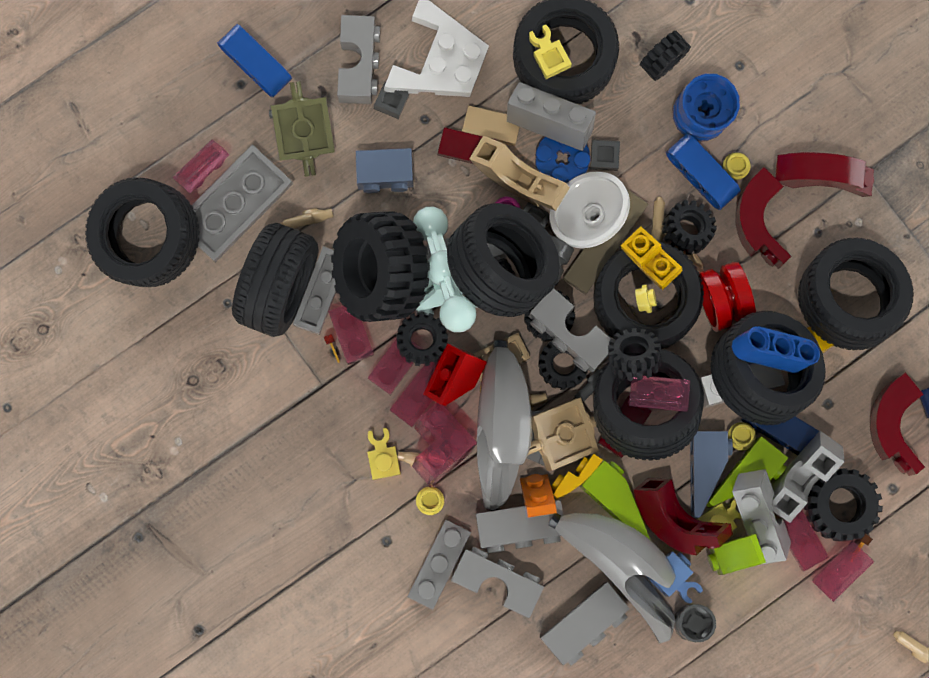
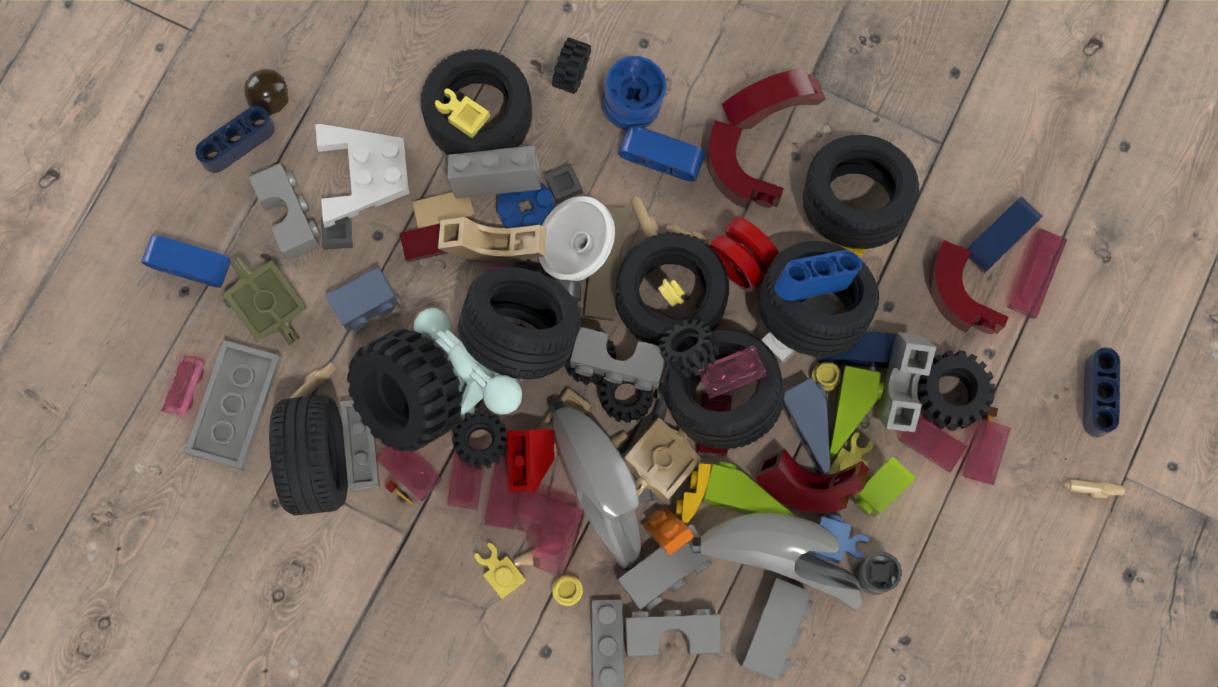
camera: 25 degrees left, 5 degrees down
(104, 231) = (114, 477): black tyre -> none
(651, 258) = (657, 253): yellow slope -> none
(695, 215) = (676, 196): black tyre -> none
(736, 165) = (689, 132): light yellow plate -> none
(755, 503) = (873, 428): light grey arch -> none

